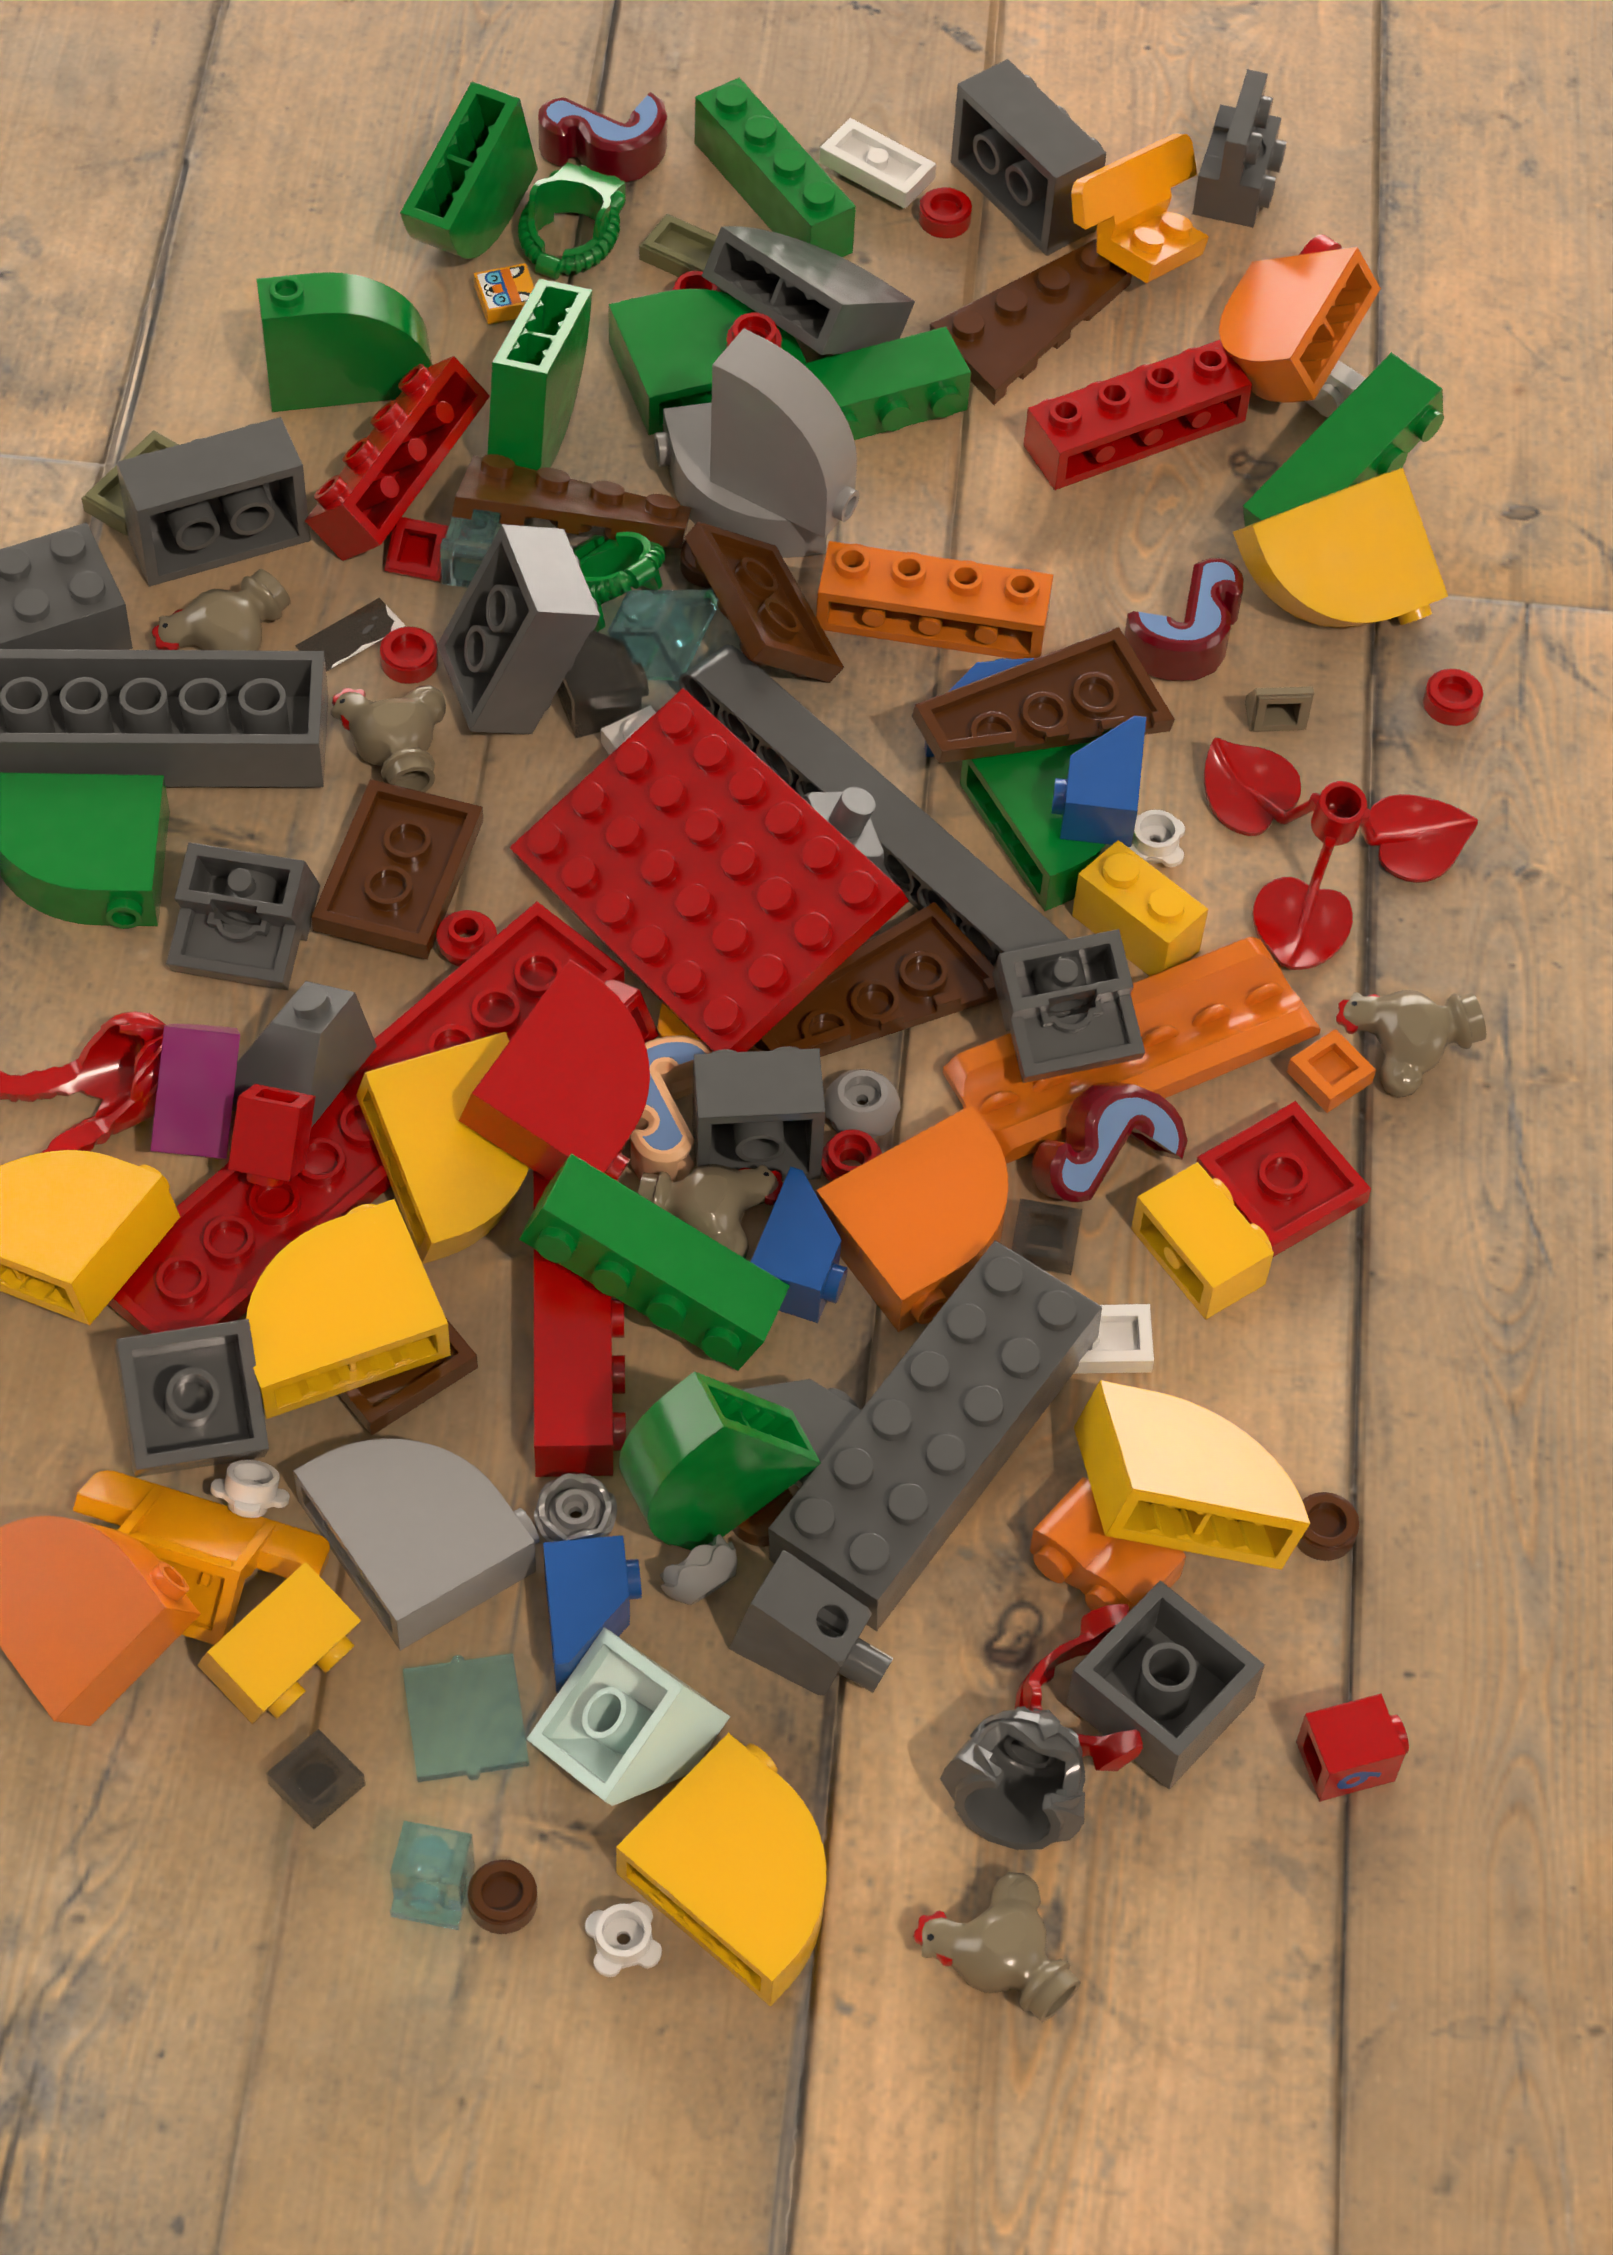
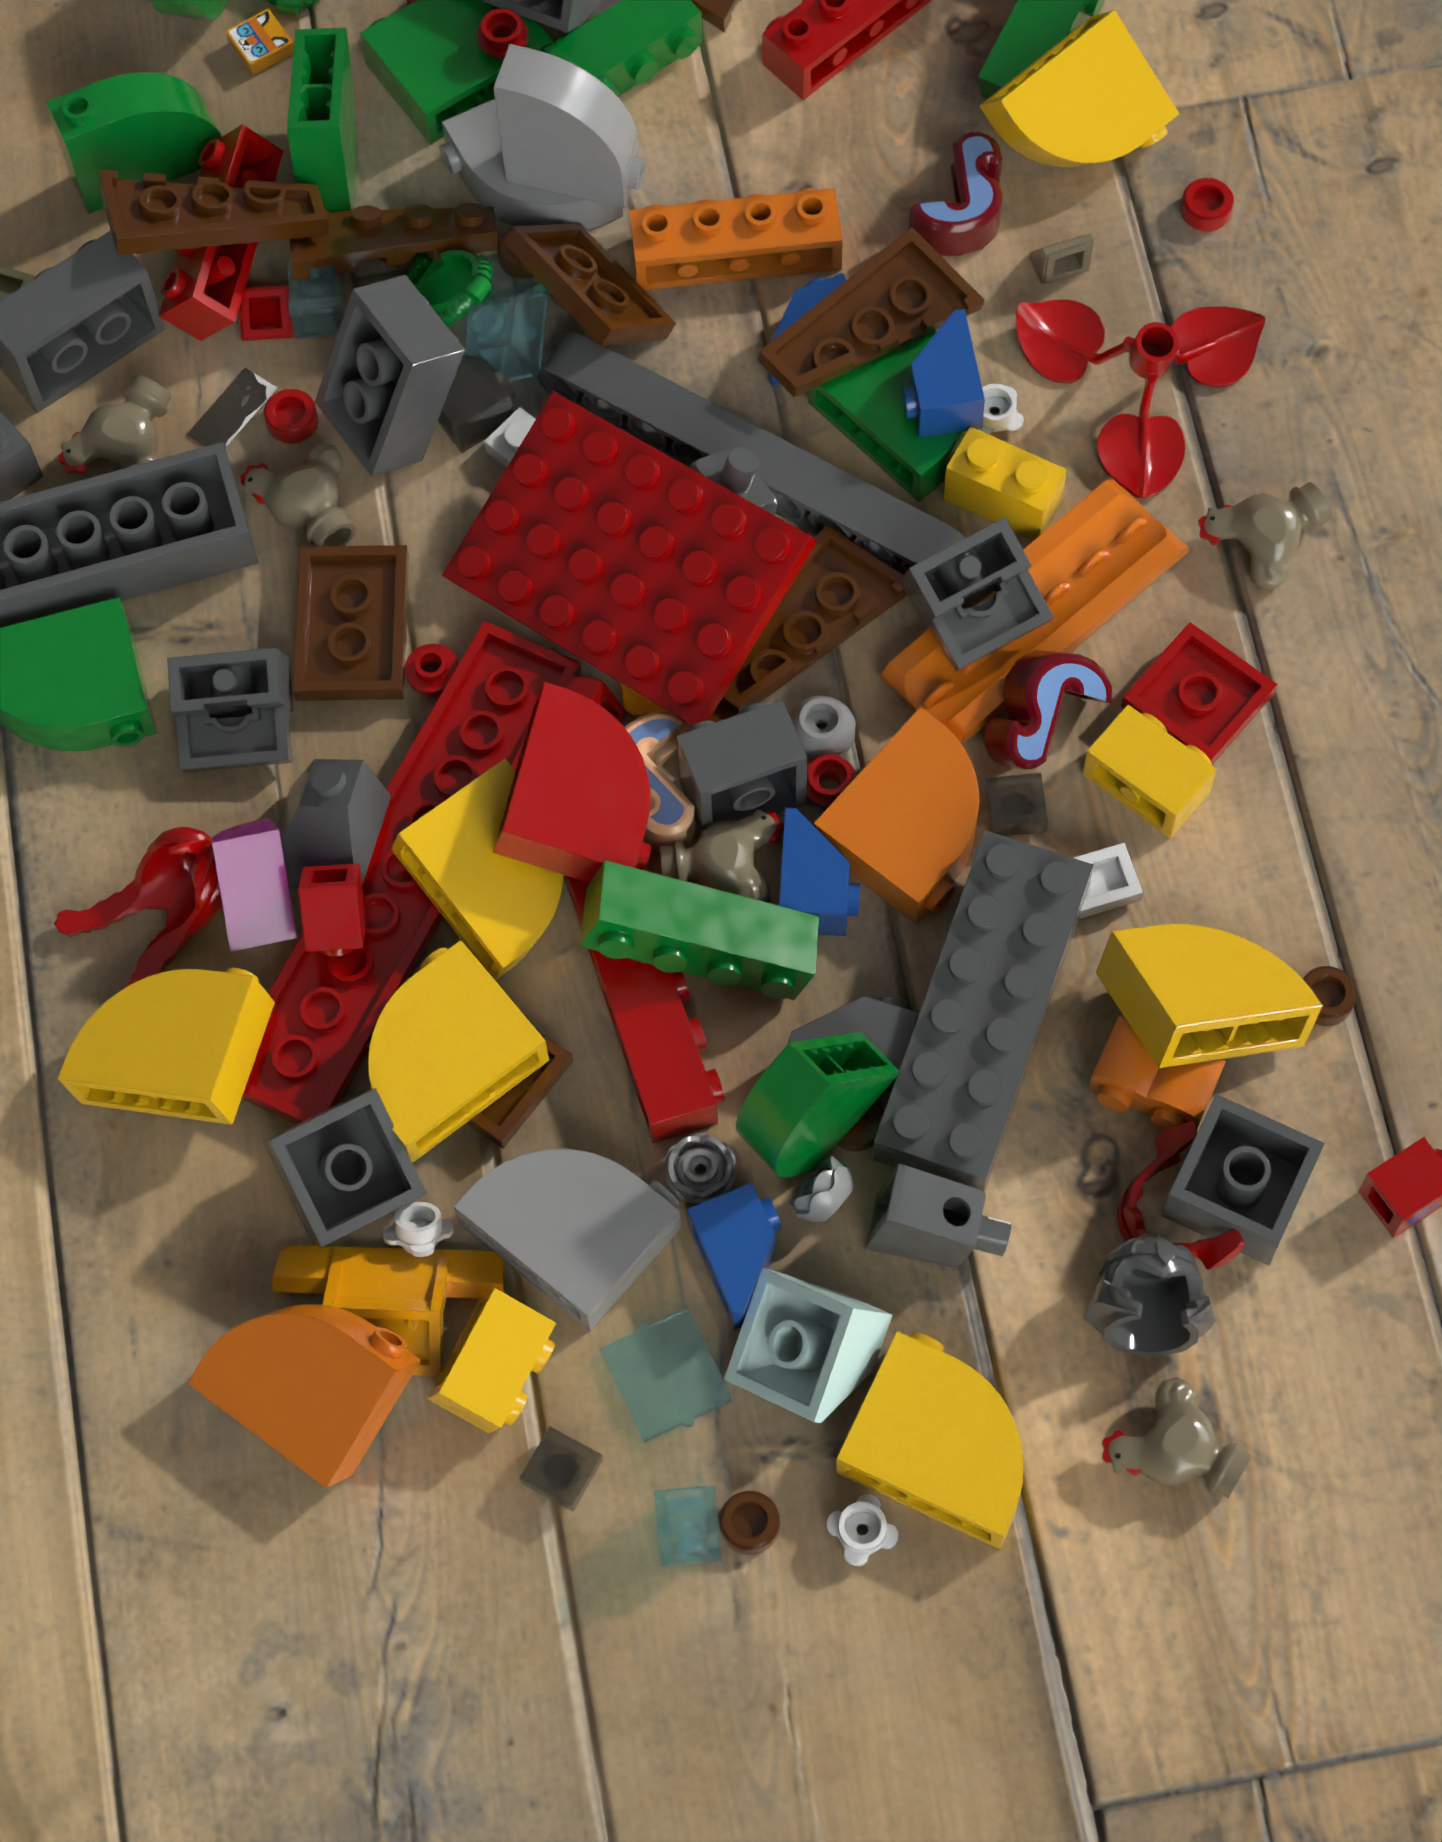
camera: 10 degrees left, 10 degrees up
(386, 427) = (182, 216): none -> reddish brown wing
(1331, 1070) = (1209, 584): orange plate -> none

